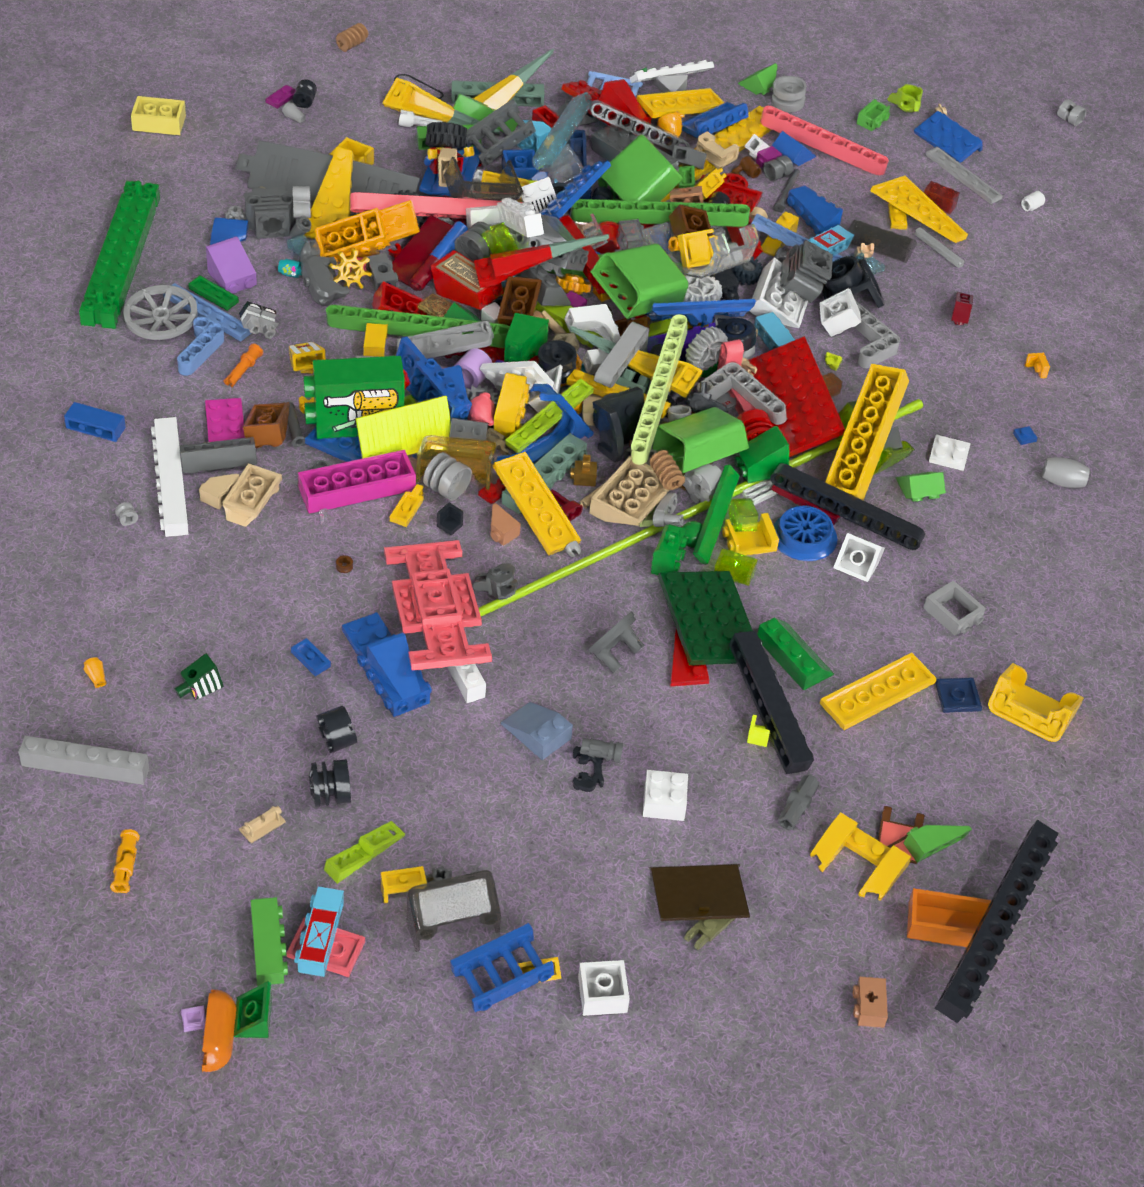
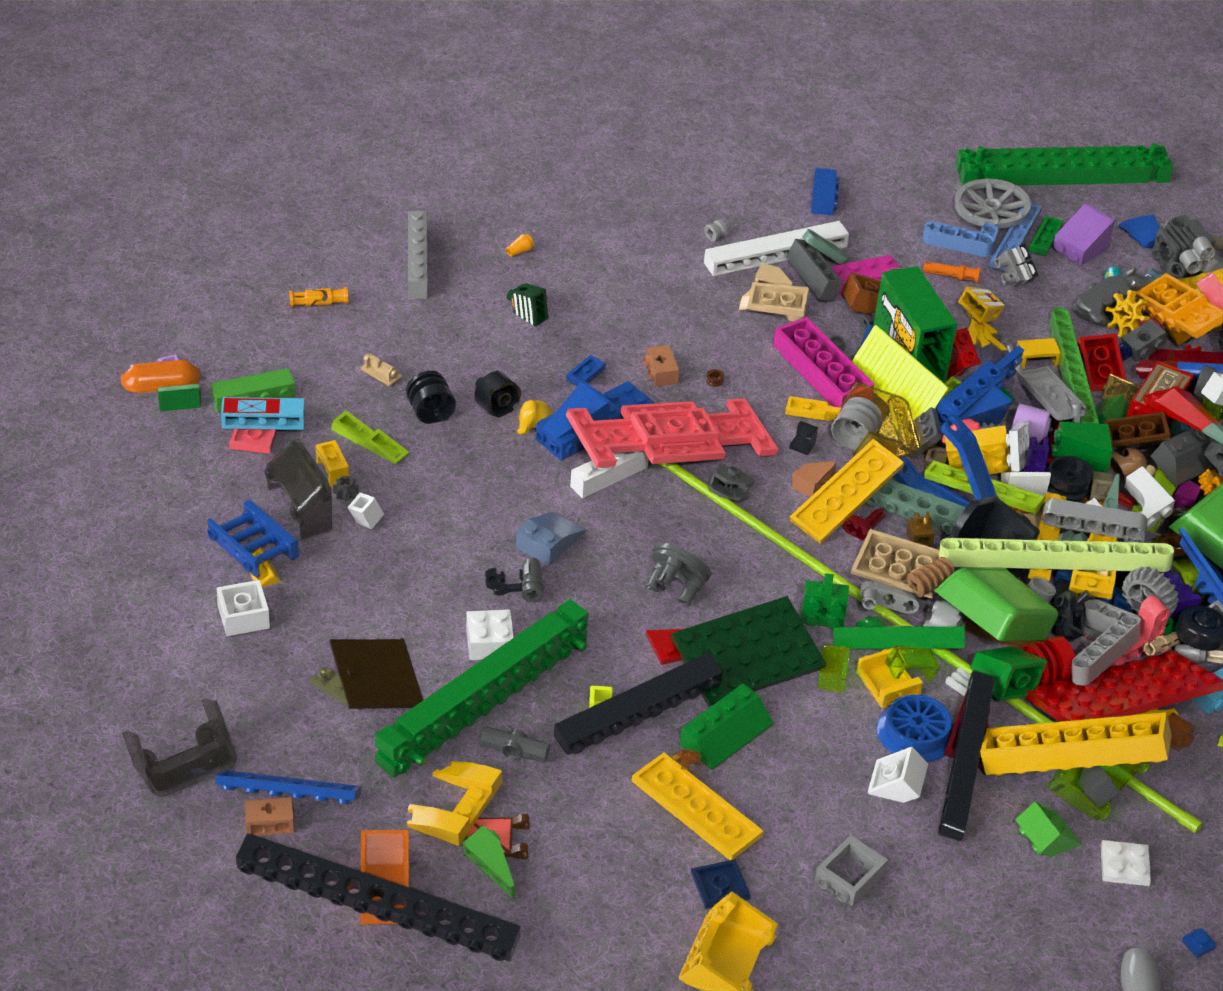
camera: 80 degrees right, 5 degrees down
(190, 437) = (825, 247): none -> sand green beam
(320, 597) = (661, 365): none -> nougat brick
(367, 709) = (531, 413): none -> yellow hair
(483, 861) = (365, 510): none -> white brick
(573, 546) = (806, 537): light grey hinge -> none
(741, 810) = (481, 688): none -> green brick
(792, 1057) = (188, 767): none -> clear smoke windscreen
(835, 681) = (687, 758): none -> clear orange piece
(840, 979) = (297, 787): none -> blue plate

